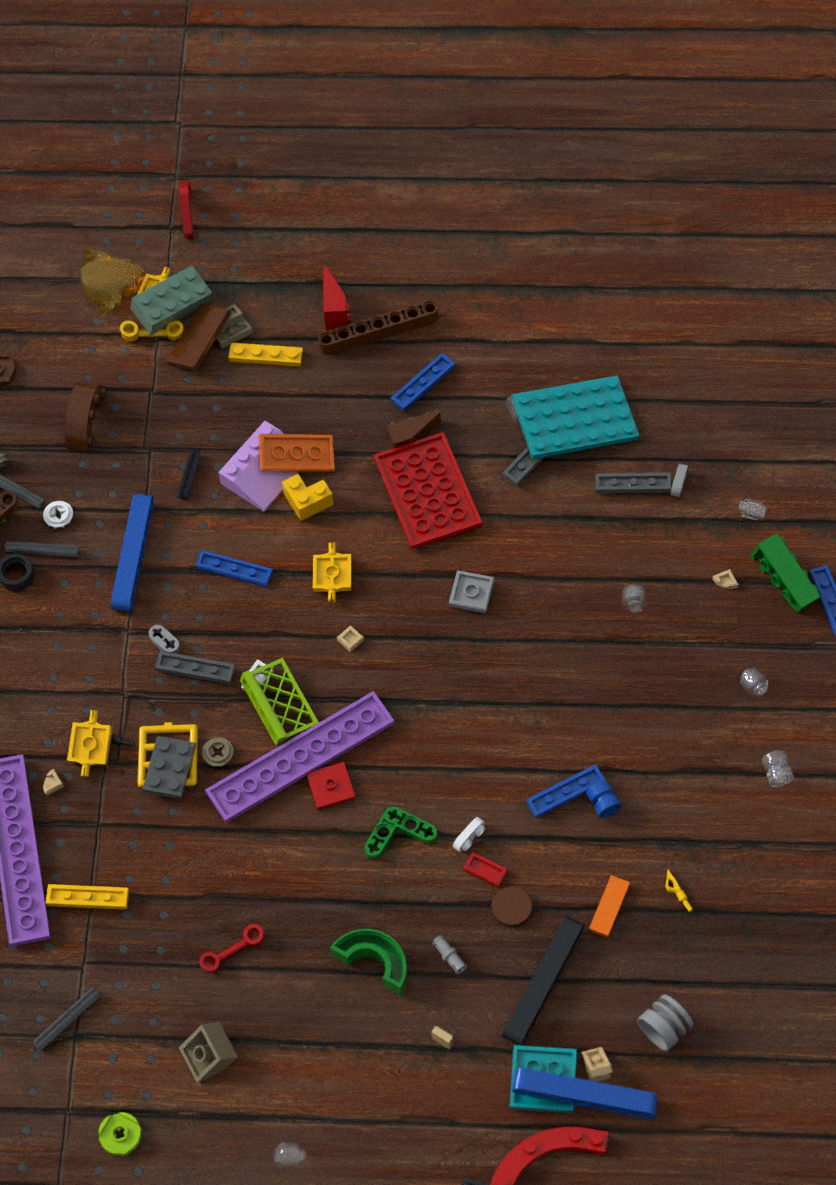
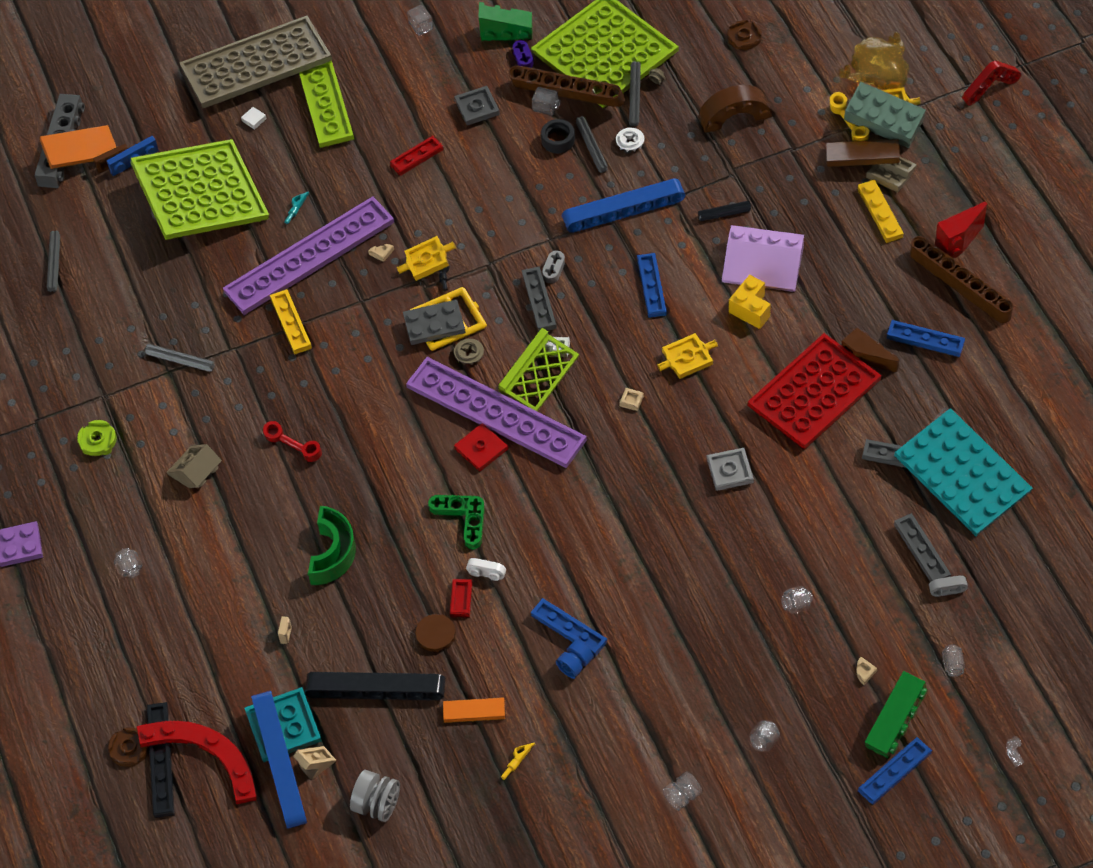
camera: 65 degrees right, 5 degrees down
(296, 453) = (787, 274): orange tile -> none
(449, 954) = (365, 603): light grey pin -> none

